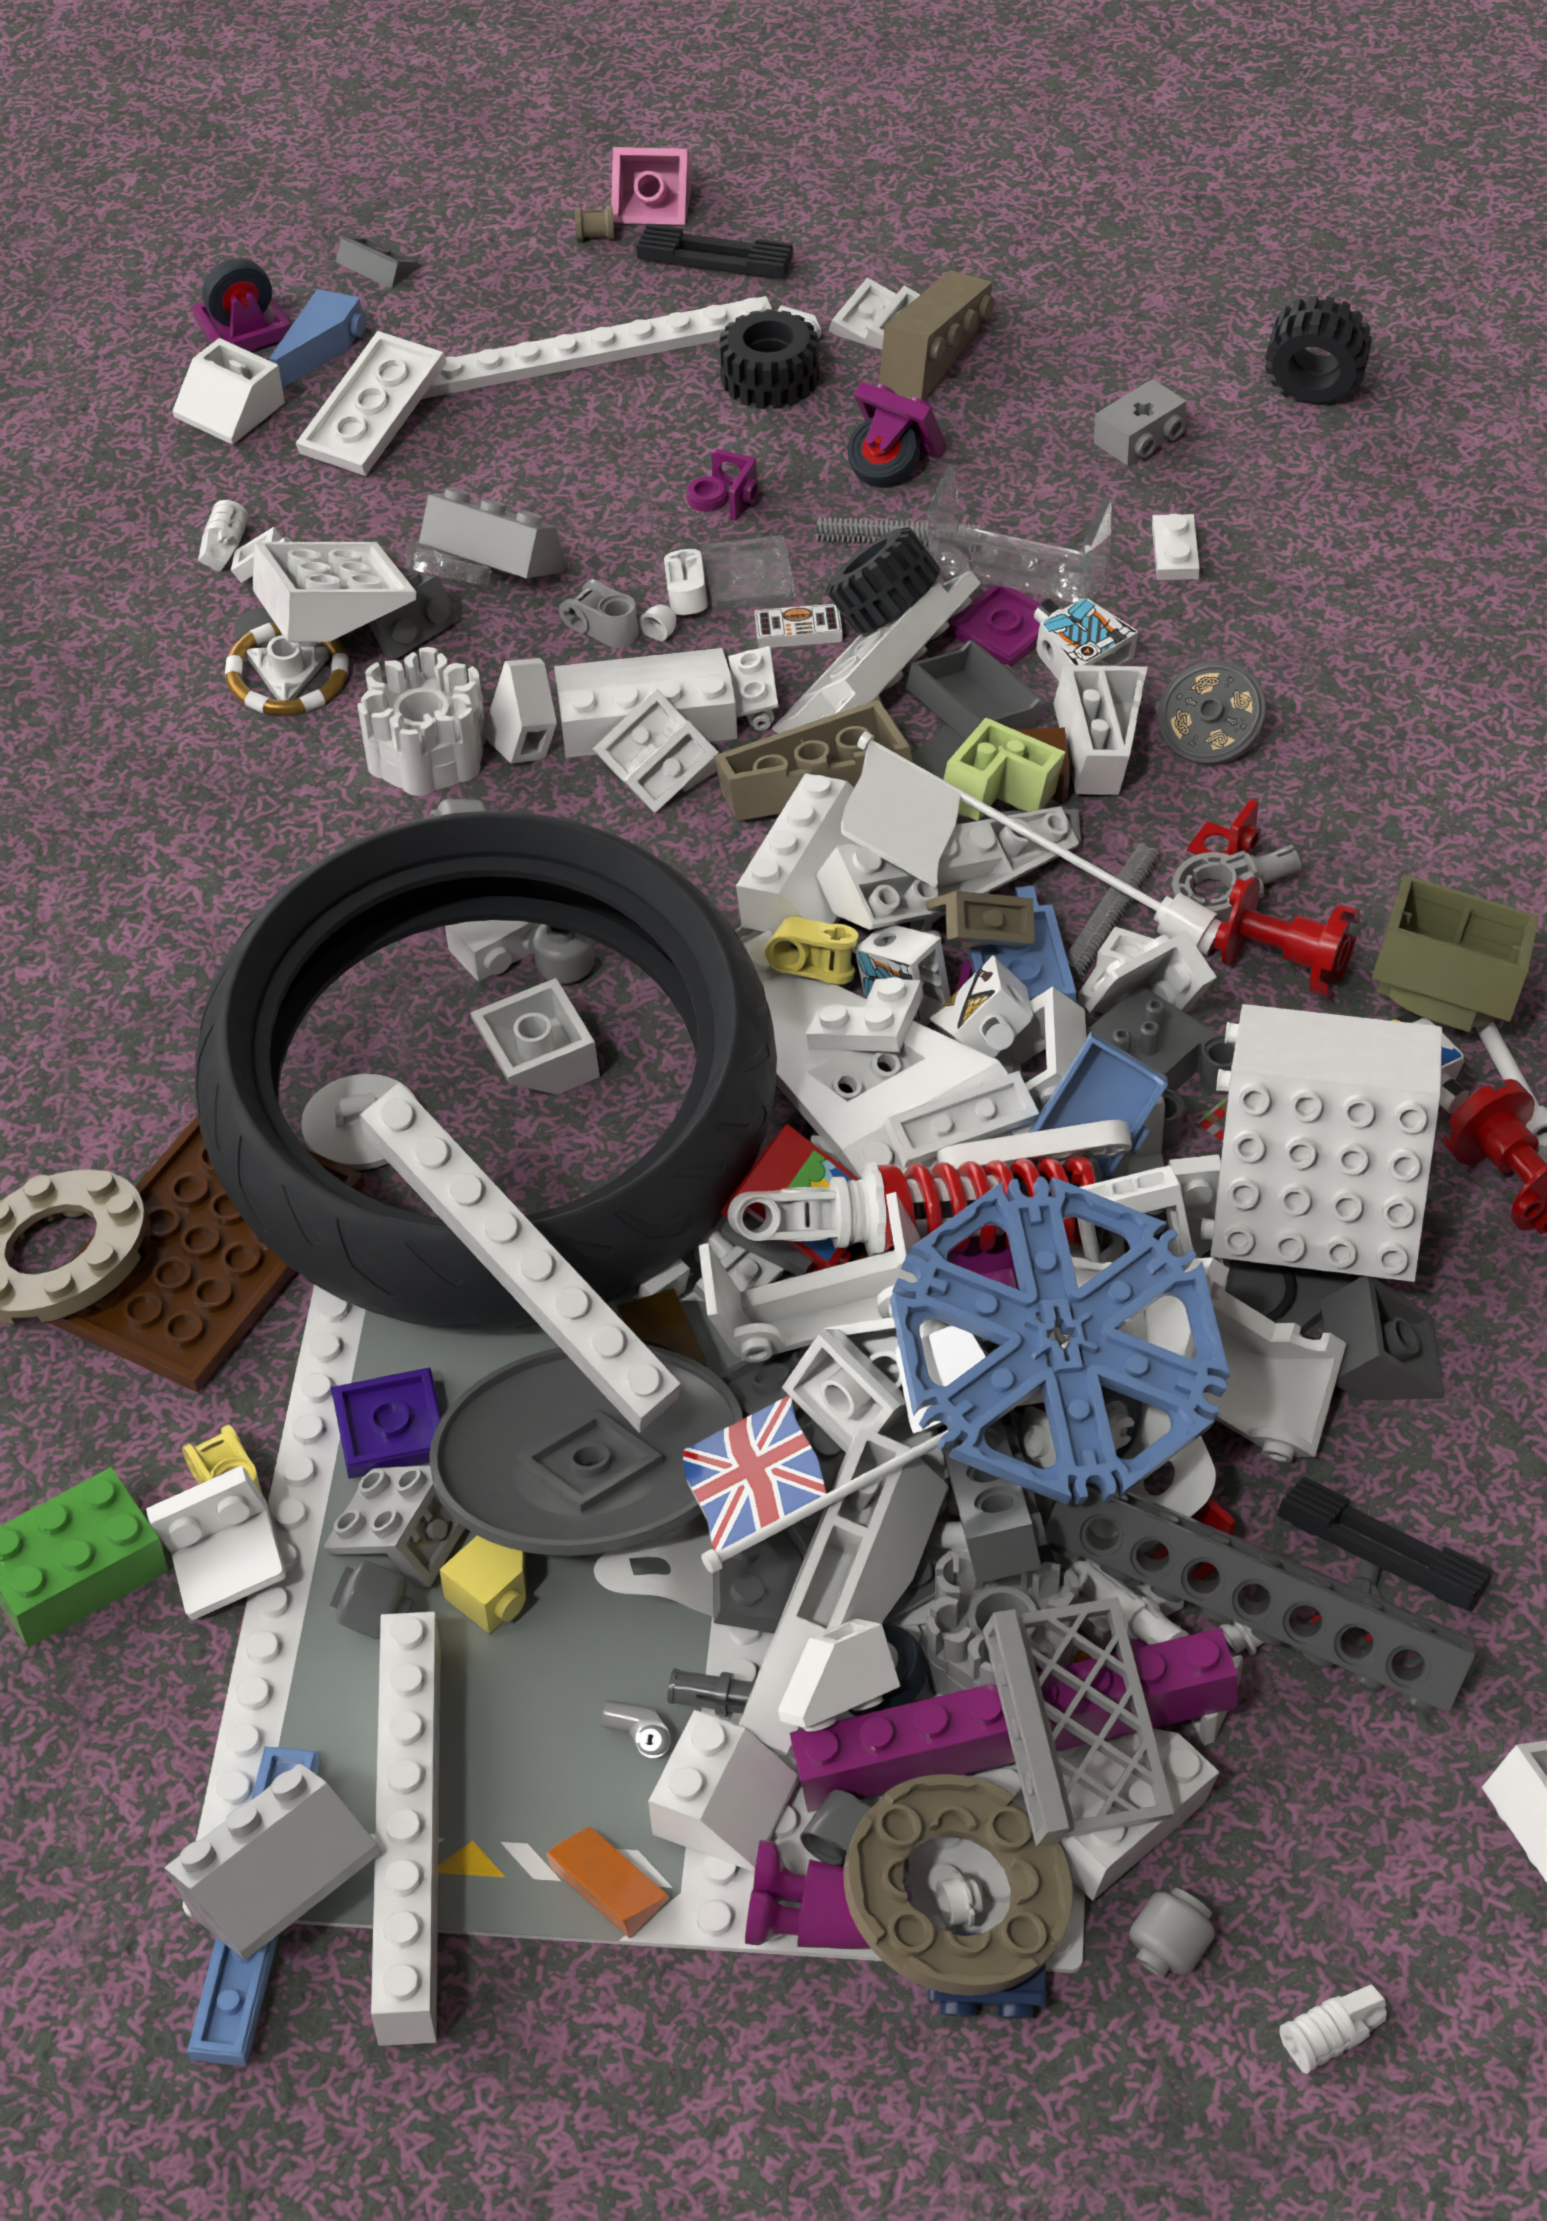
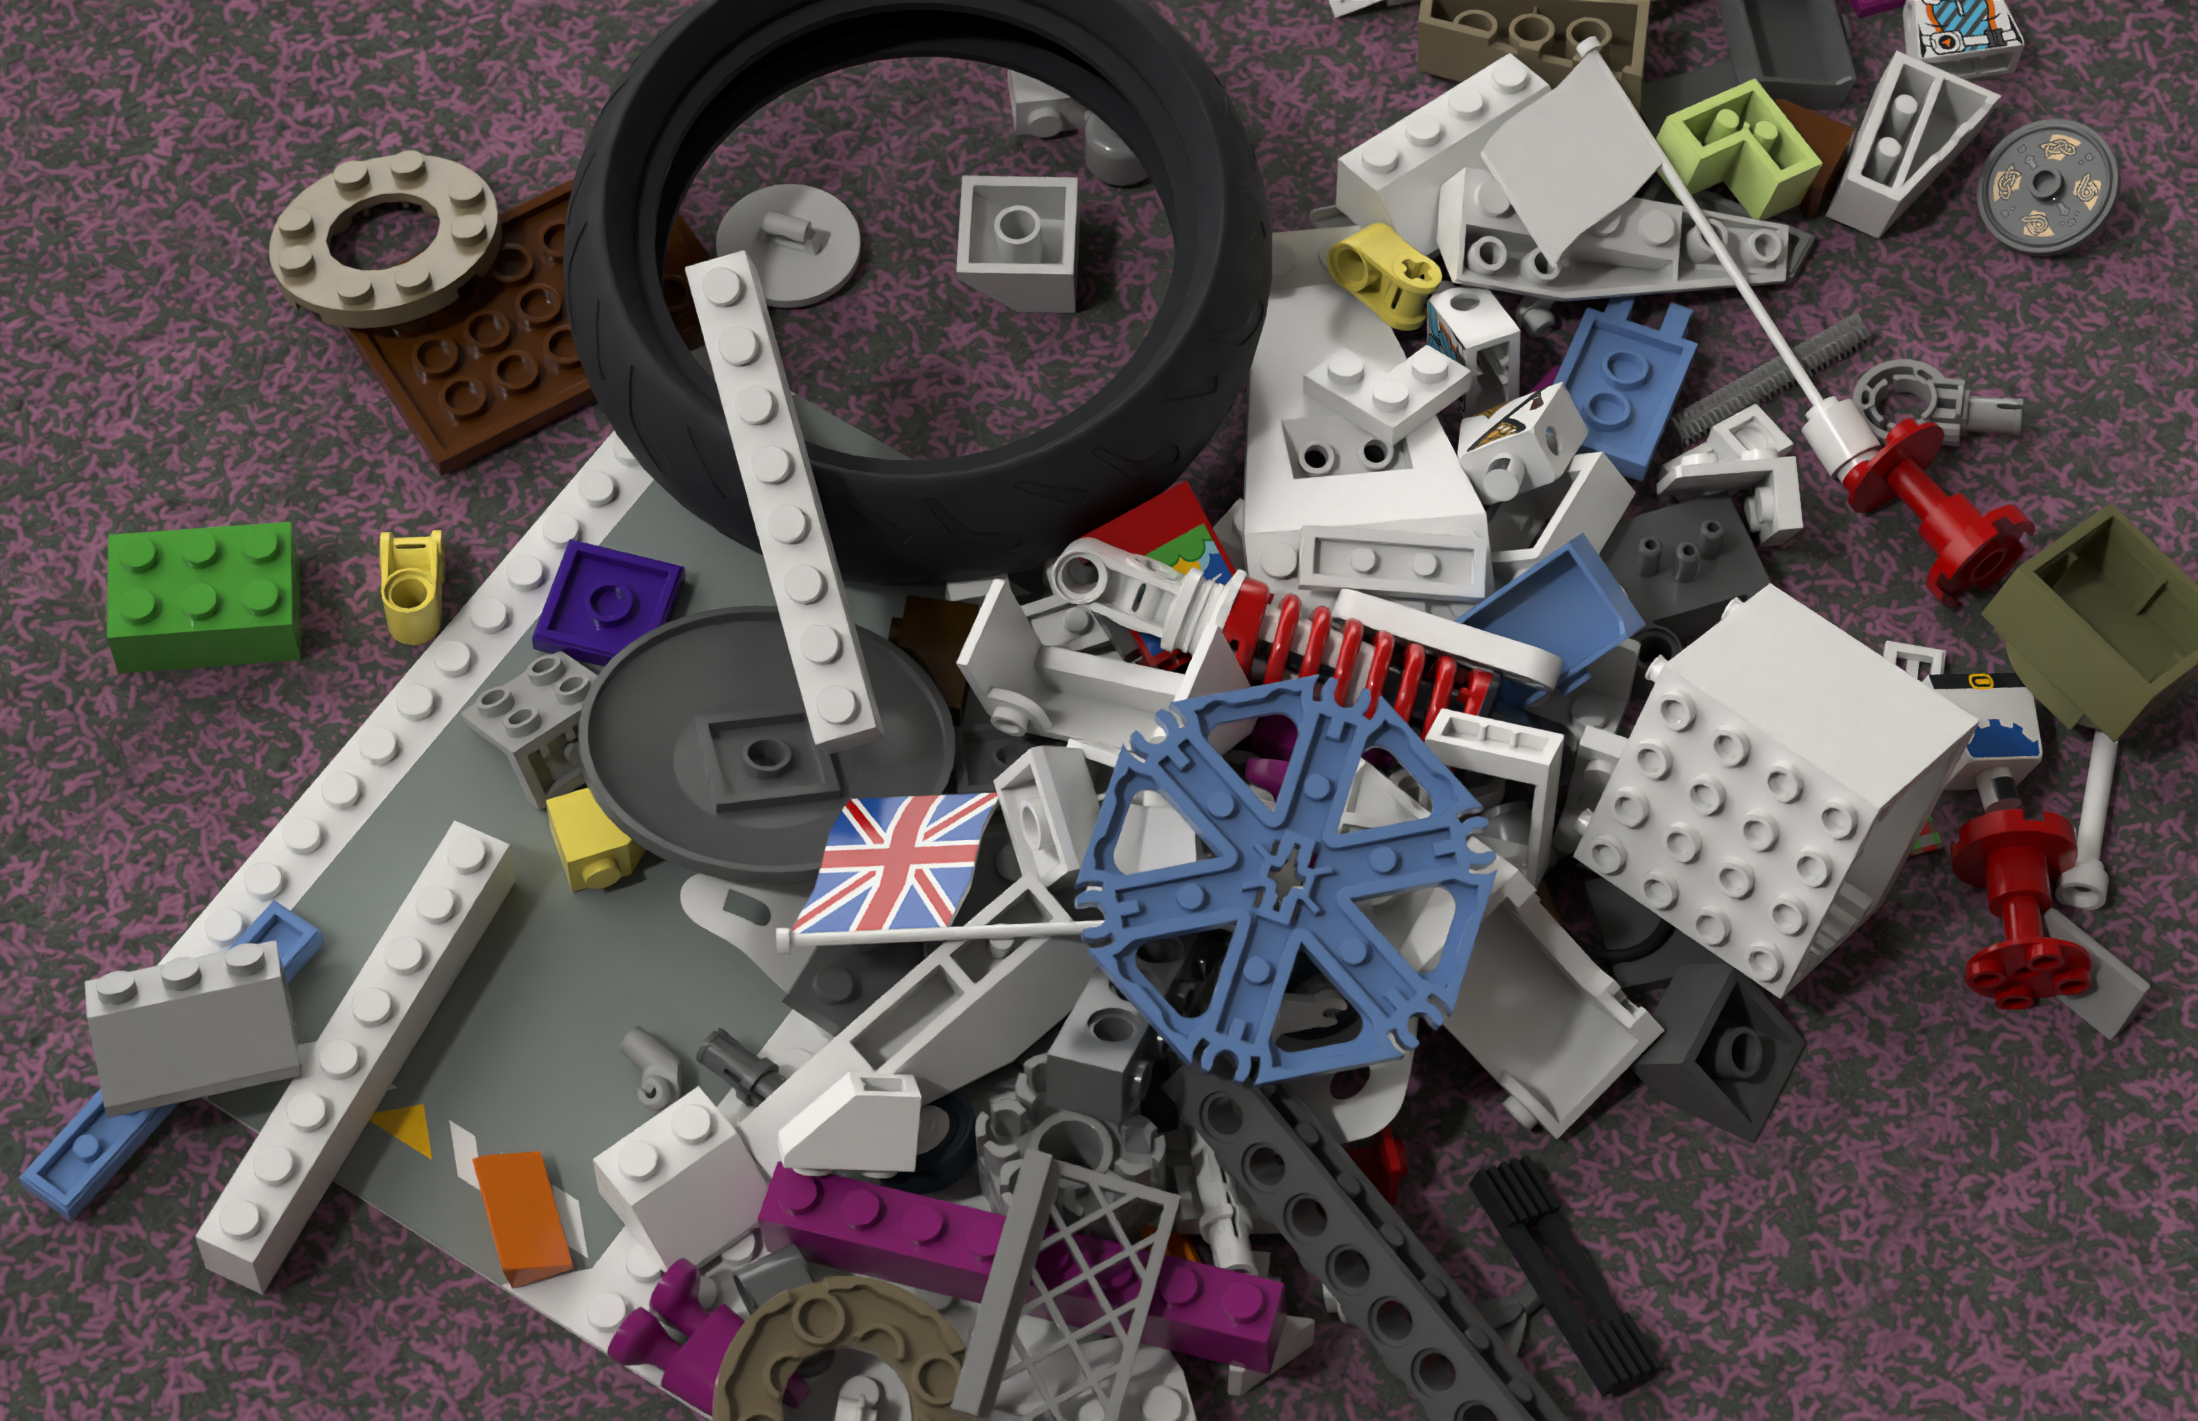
camera: 25 degrees right, 10 degrees up
(219, 1541) = (359, 656): white bracket -> none
(367, 1594) = (469, 792): dark grey head -> none
(986, 918) = (1591, 332): dark tan panel -> none
(1241, 836) = (1975, 358): red bracket -> none

